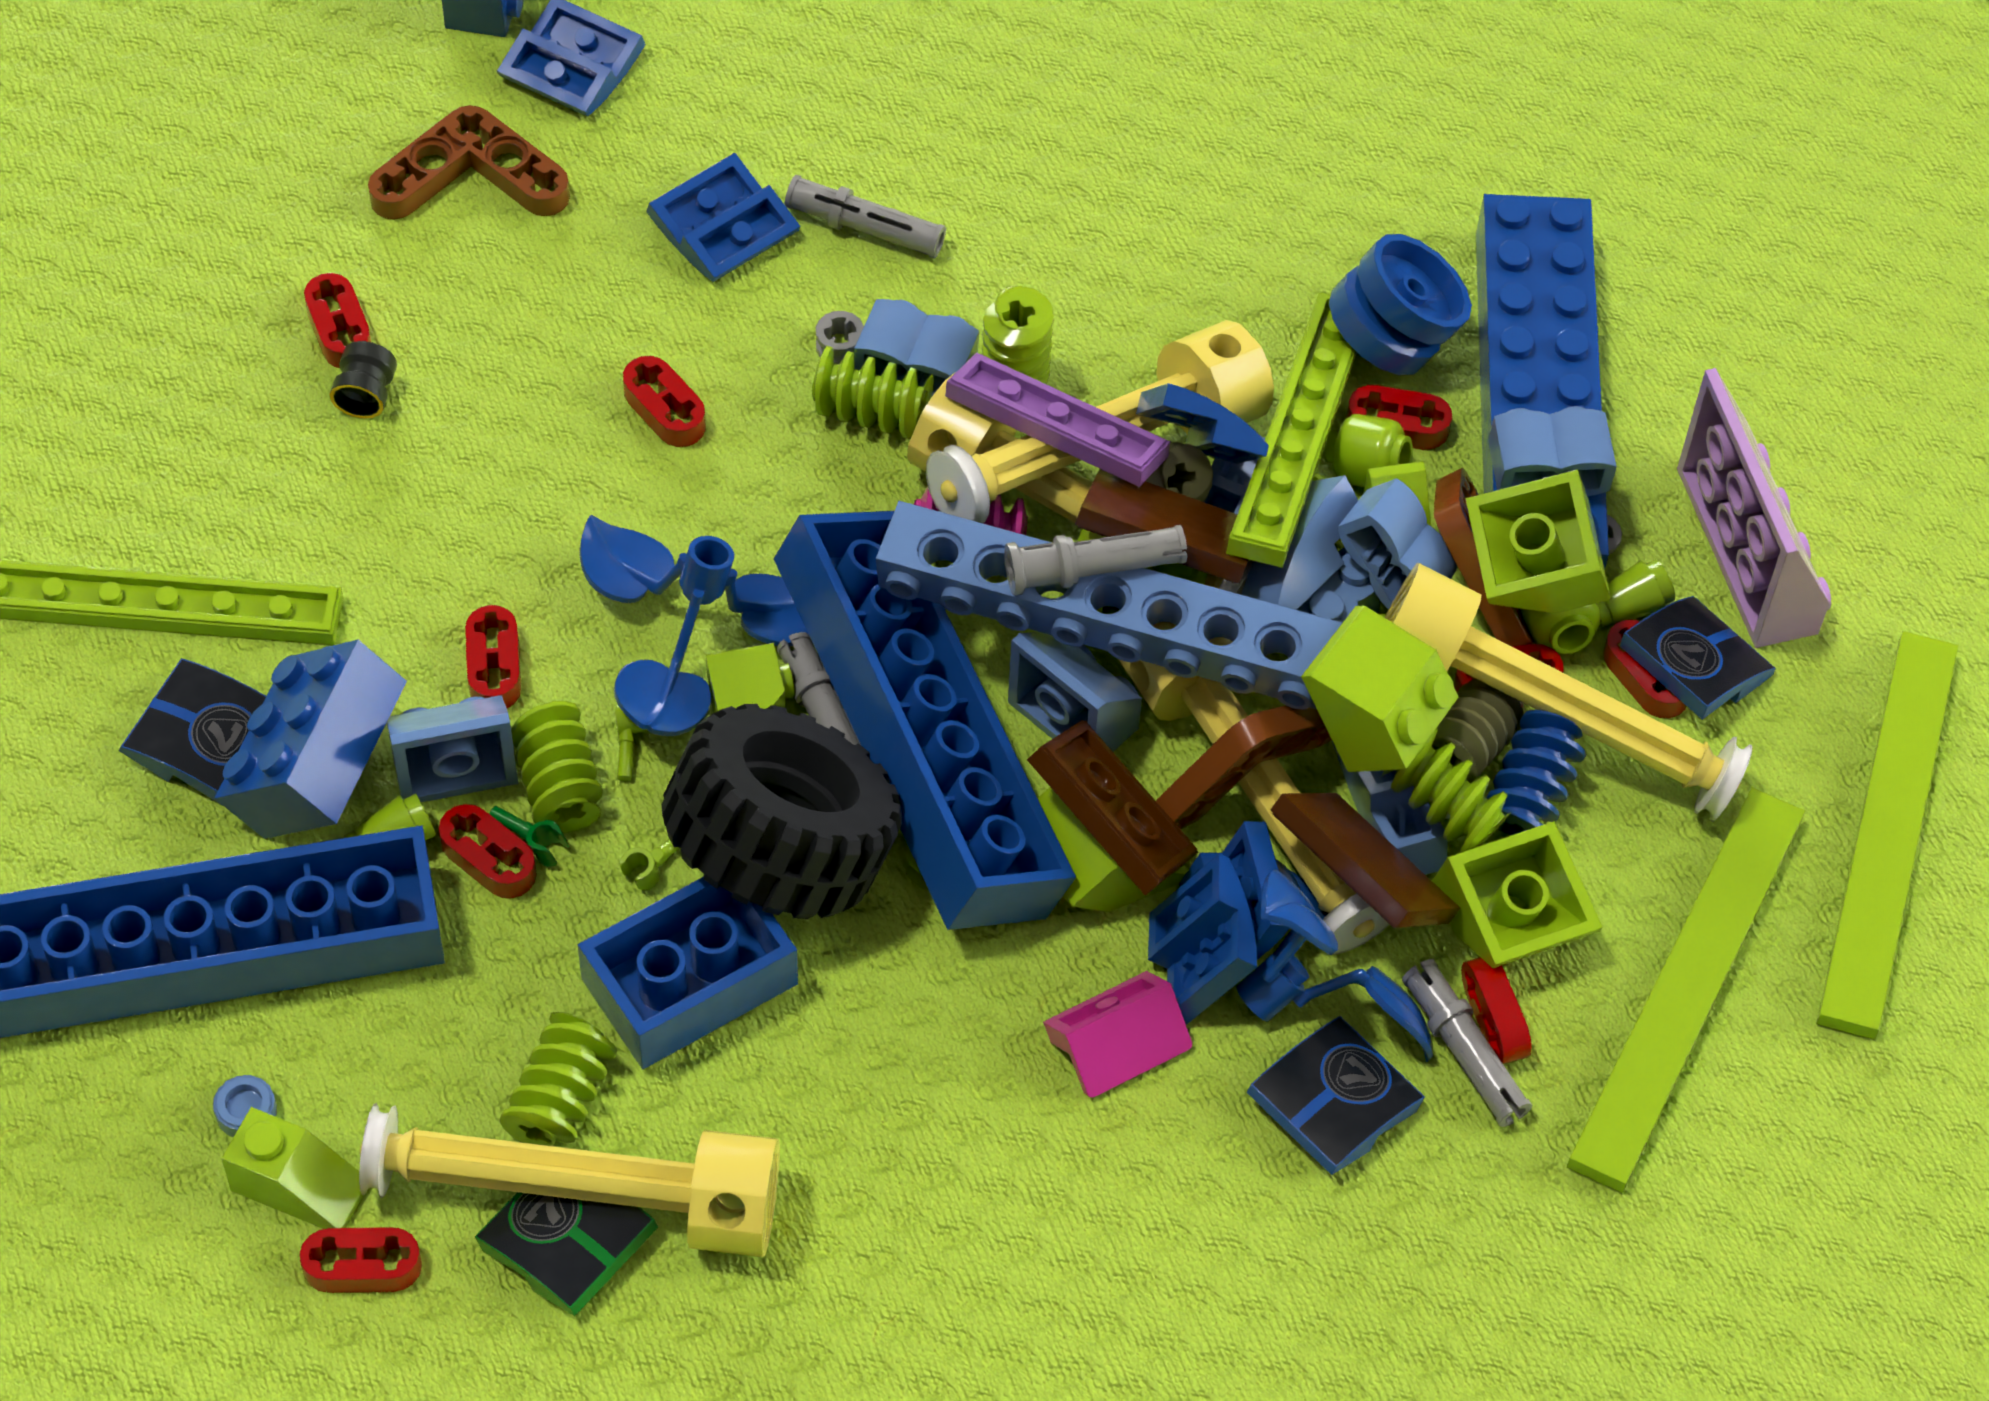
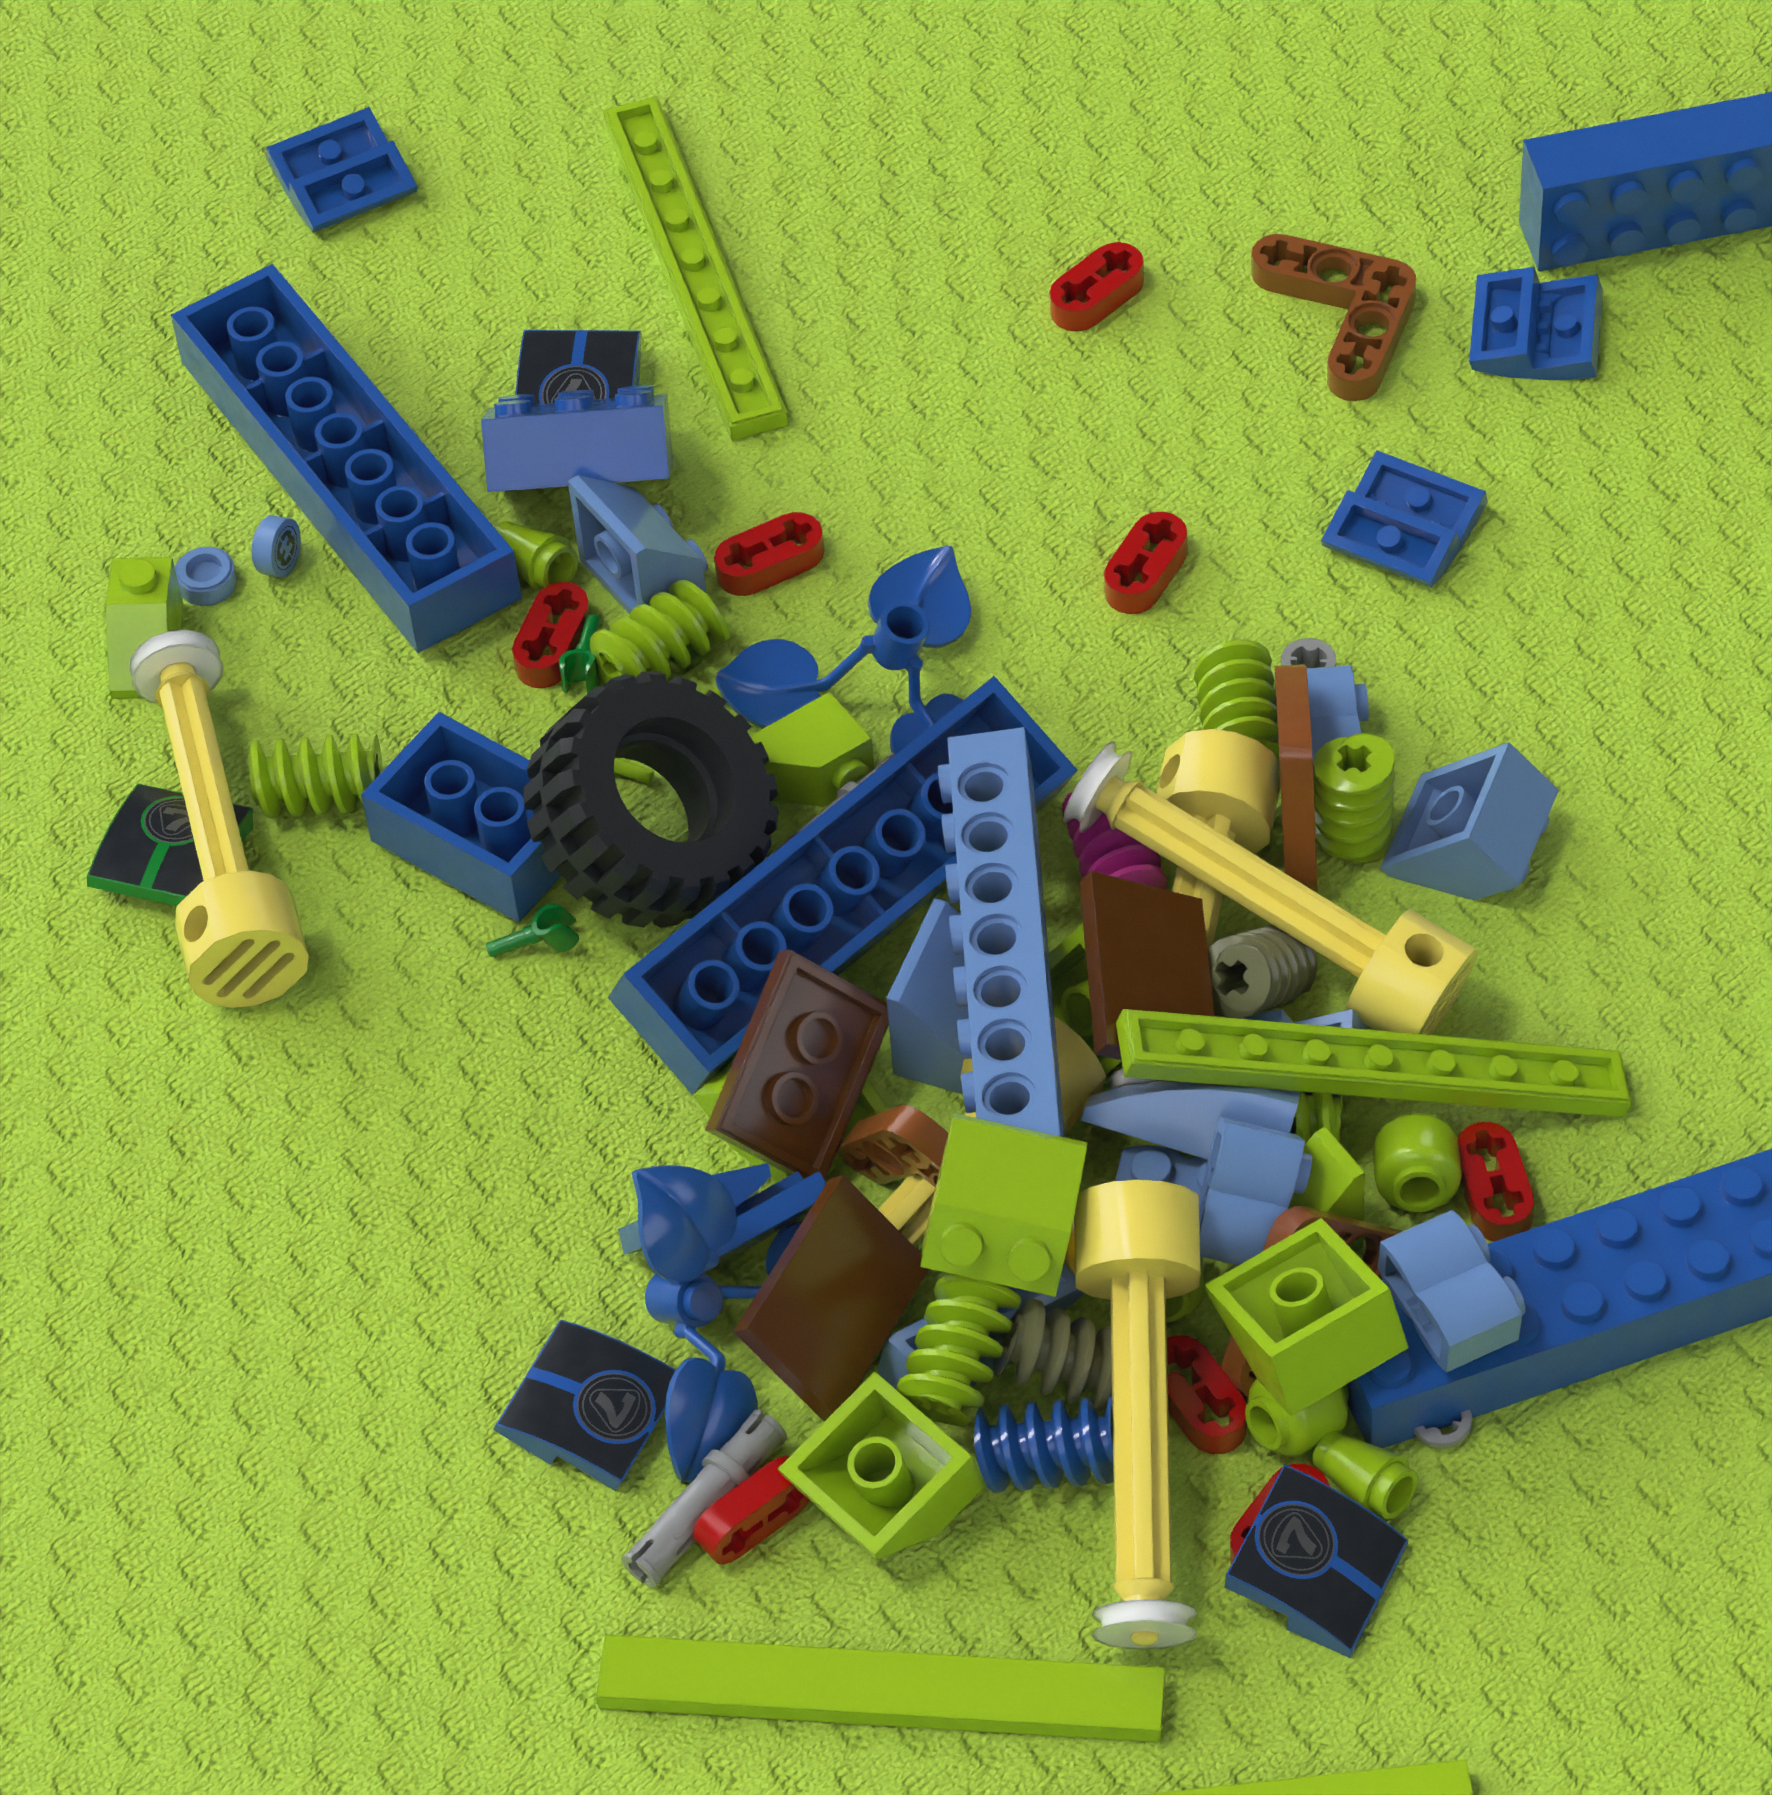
camera: 75 degrees right, 5 degrees down
(256, 1031) = (276, 546): none -> medium blue tile
(360, 1260) = (94, 712): red beam -> none
(363, 379) = (1029, 327): pearl dark grey wheel -> none
(821, 975) = (549, 924): none -> green hand
(845, 209) = (1473, 608): light grey pin -> none
(928, 338) = (1296, 774): none -> dark orange beam
(1057, 419) = (1226, 834): medium lavender tile -> none
(1068, 560) = (1003, 876): light grey pin -> none
(1082, 283) = (1472, 825): none -> medium blue slope
(1121, 1032) = (572, 1194): dark pink panel -> none
(1210, 425) = (1295, 962): blue slope -> none
(1400, 304) = (1611, 1106): blue wheel -> none
(1749, 521) = (1512, 1531): slope -> none

